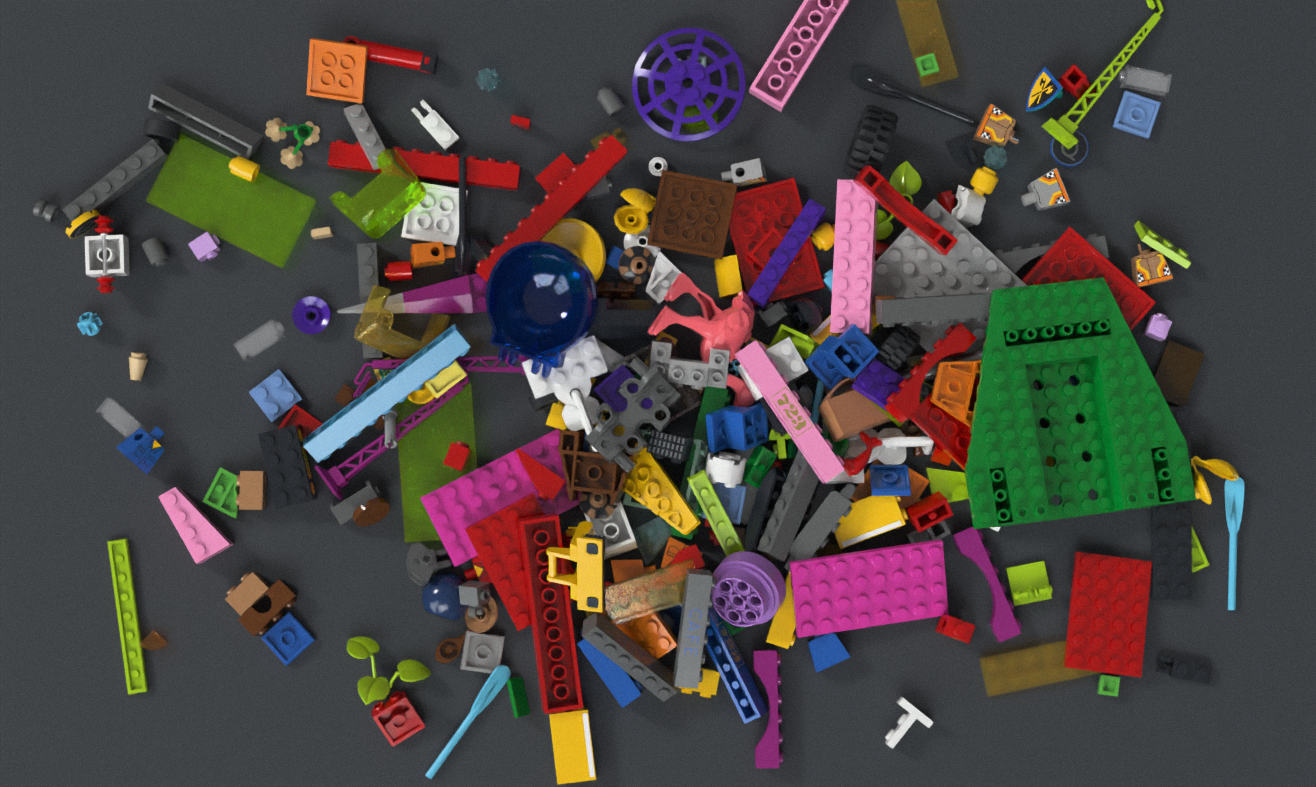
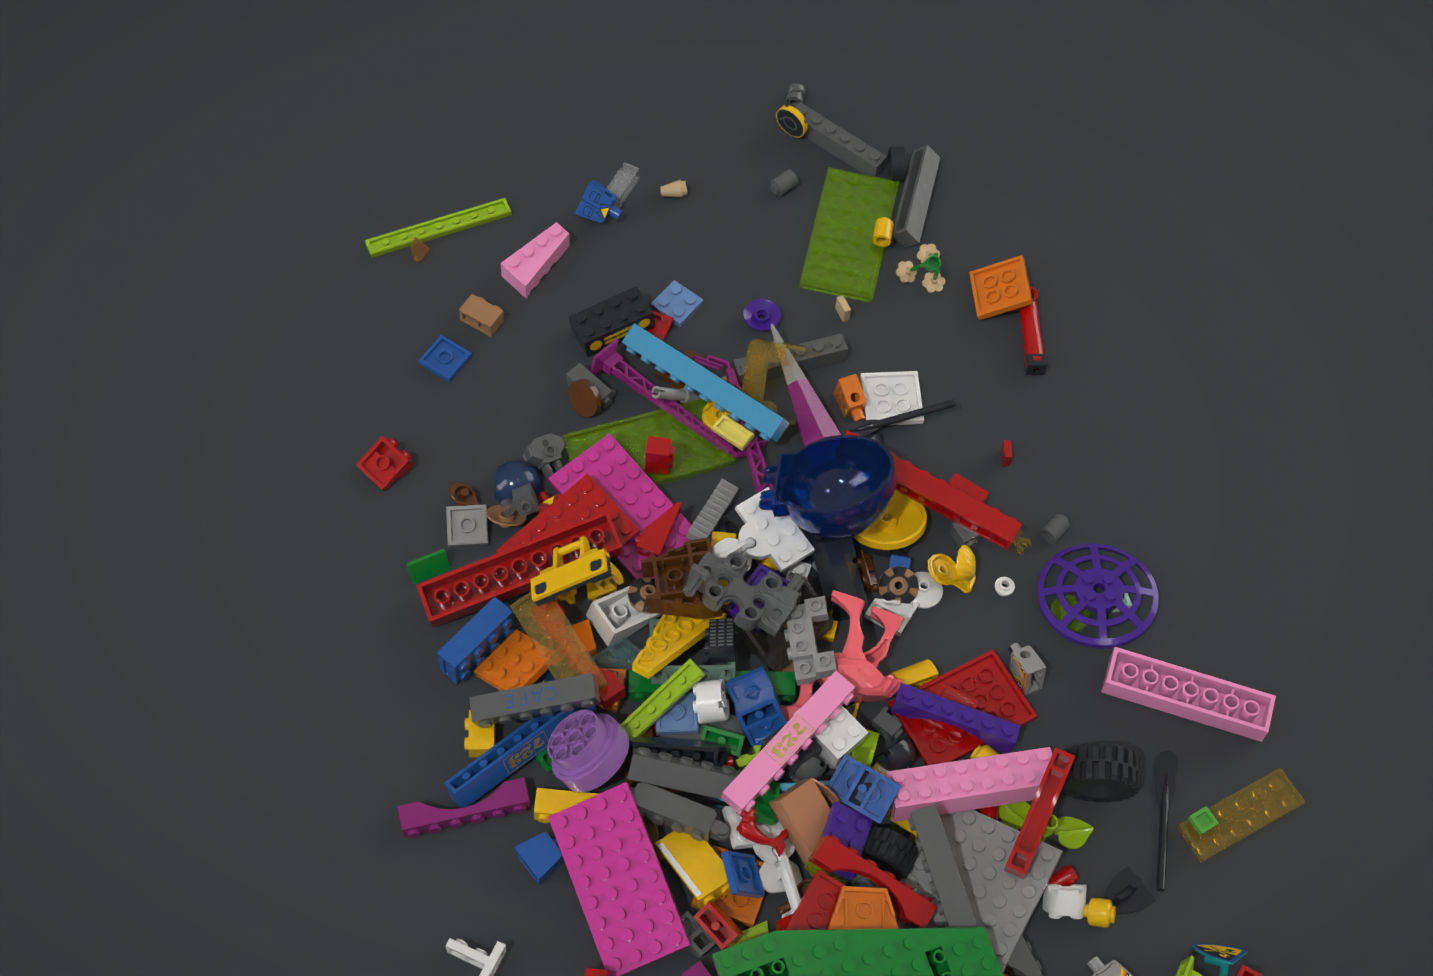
camera: 70 degrees right, 25 degrees down
(89, 323) = (702, 145): medium azure gear -> none
(106, 255) = (769, 144): white brick -> none
(205, 246) = (800, 219): lavender brick -> none
(223, 493) = (573, 278): bright green wing -> none
(252, 490) = (579, 298): medium nougat brick -> none
(260, 339) = (726, 278): clear window -> none
(281, 596) = (483, 343): reddish brown arch -> none
(365, 132) = (947, 323): light grey plate -> none
(378, 688) = (411, 420): lime plant -> none
(384, 198) = (895, 347): clear neon green windscreen -> none
(399, 271) = (826, 378): red brick -> none
(432, 166) = (935, 381): red brick -> none
(436, 126) = (976, 384): white hinge -> none
(486, 695) = (424, 538): medium azure piece -> none
(488, 79) = (1037, 416): clear light blue gear -> none
(523, 418) = (713, 511): none -> light grey gear
(572, 746) = (387, 624): yellow panel -> none
(629, 656) = (492, 646): dark grey brick -> none
(692, 215) = (966, 624): reddish brown plate -> none
(995, 157) = (1129, 918): clear light blue gear -> none
(996, 128) = (1161, 912): torso -> none

